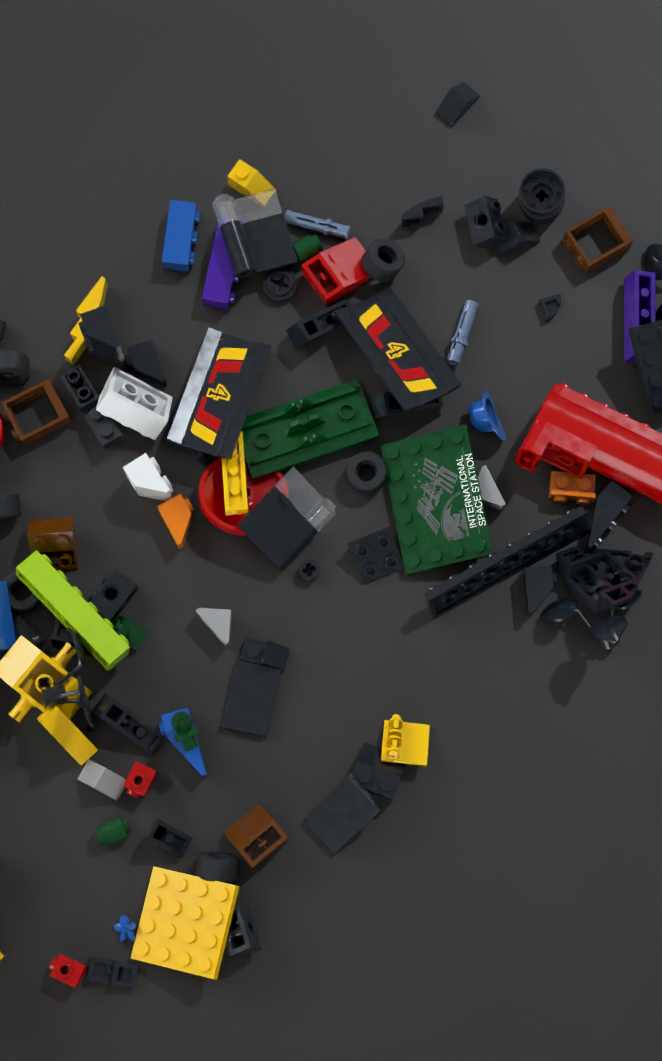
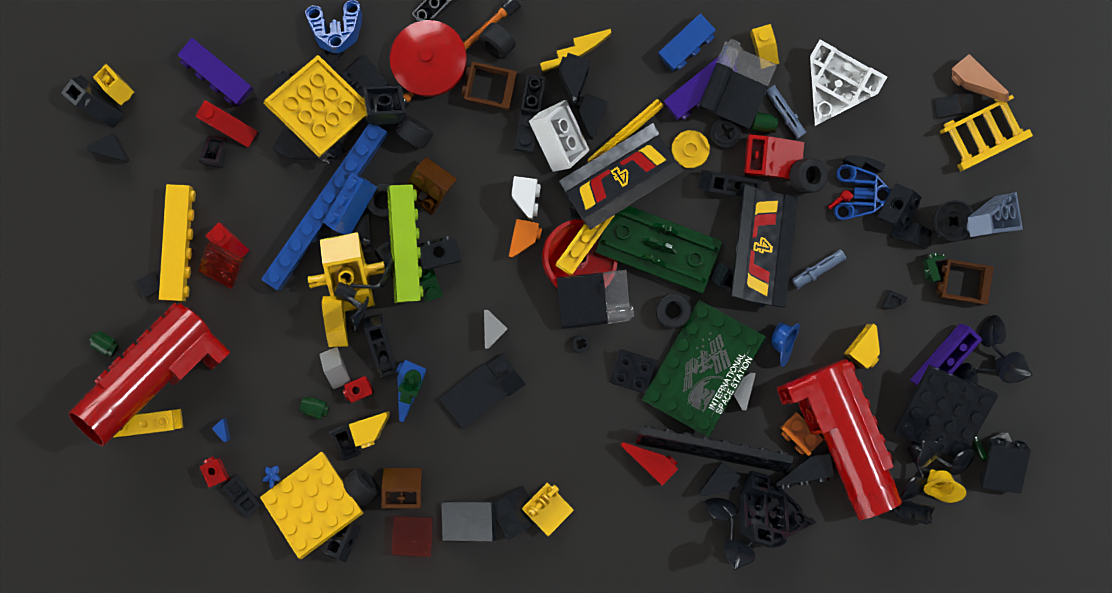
camera: 40 degrees right, 10 degrees up
(43, 925) = (222, 430): none -> blue slope
(180, 806) = (368, 429): none -> yellow slope
(192, 346) = (629, 129): none -> yellow axle
(261, 323) = (690, 149): none -> yellow tile
(302, 873) = (412, 536): none -> clear red plate
(341, 160) = (839, 81): none -> white wedge
(431, 252) = (845, 195): none -> red hand
(432, 224) = (861, 177): none -> blue connector
(456, 64) = (976, 79): none -> nougat slope
(467, 620) = (655, 463): none -> red slope
(517, 119) = (984, 151): none -> yellow fence
(559, 253) = (930, 270): none -> dark green bracket
(561, 363) = (865, 348): none -> yellow slope
(576, 161) = (996, 216): none -> sand blue wedge

